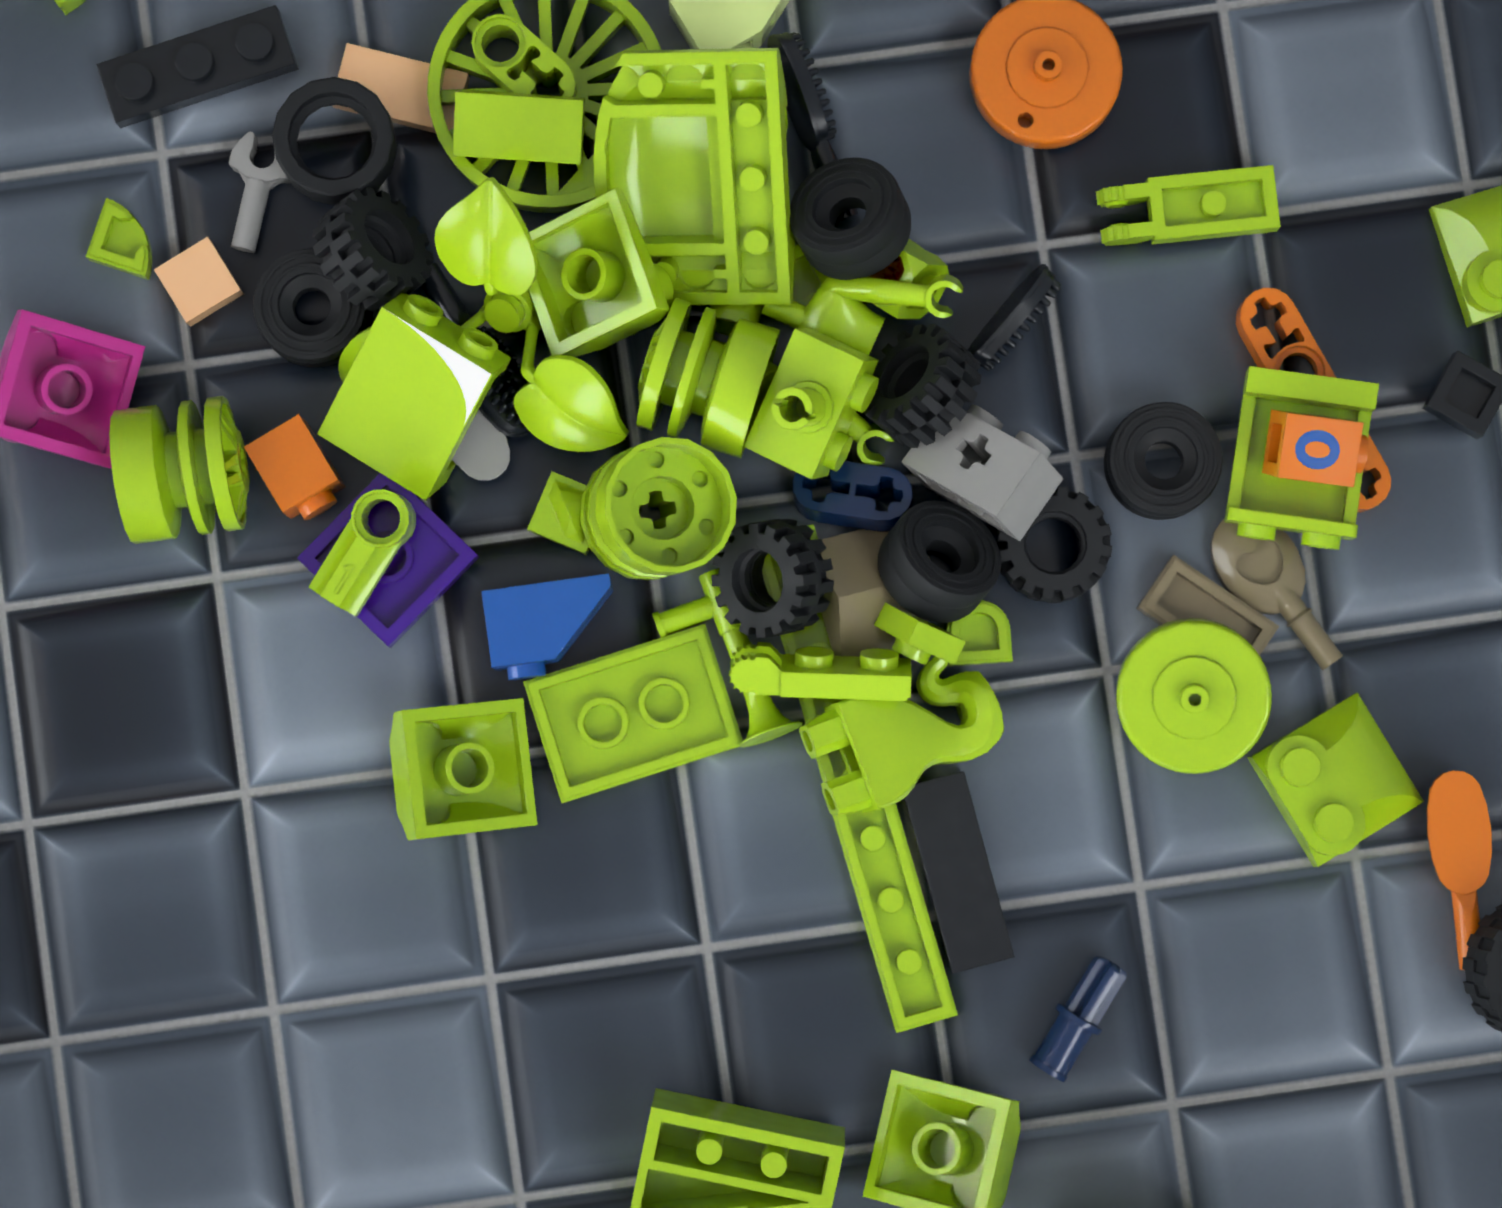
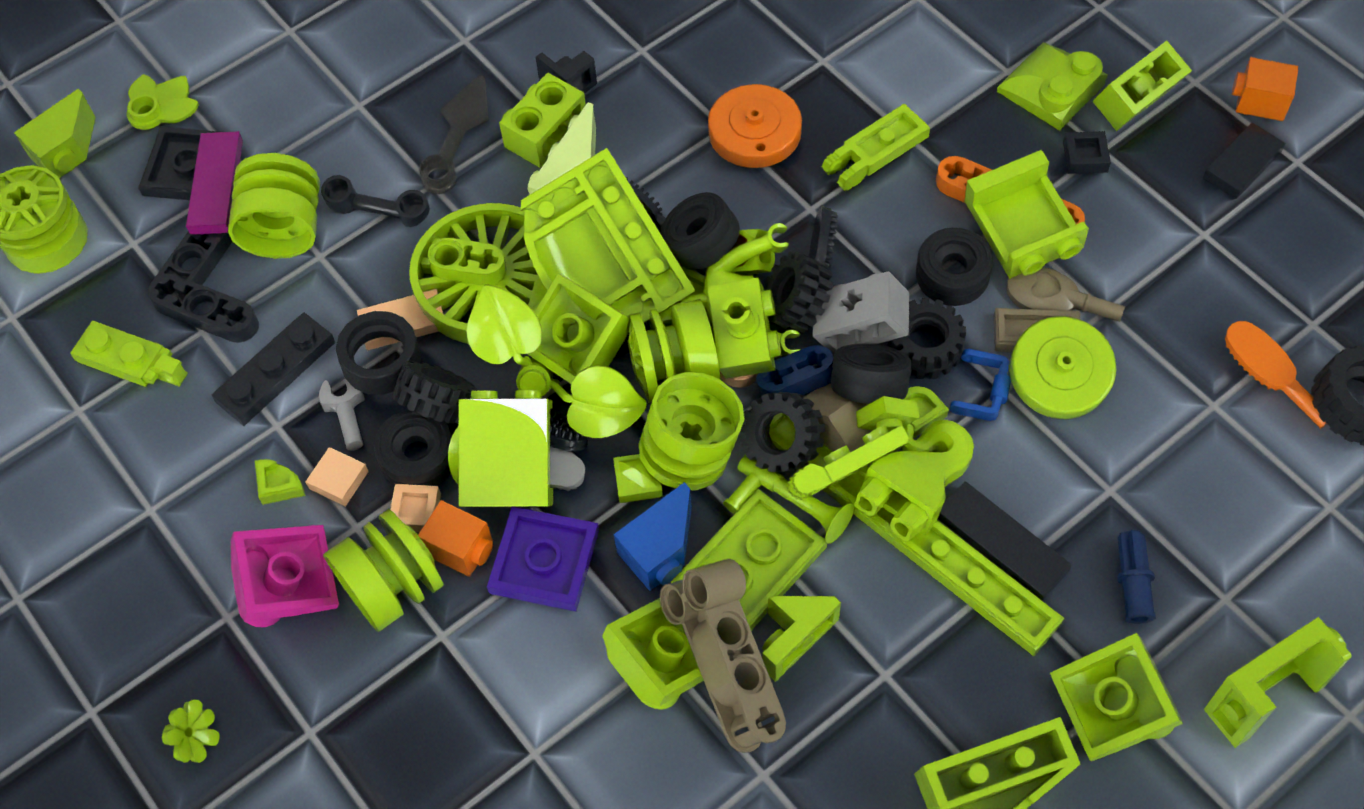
camera: 25 degrees left, 25 degrees down
(271, 386) = (415, 503): none -> light nougat tile
(360, 556) = (527, 550): lime piece -> none
(518, 126) = (463, 287): lime tile -> none
(529, 755) = (709, 605): none -> dark tan piece
(648, 836) = (804, 623): none -> lime slope
(1100, 668) = (999, 390): none -> blue piece
(1314, 448) = (1031, 200): orange brick -> none
(1335, 780) = (1171, 373): lime slope -> none

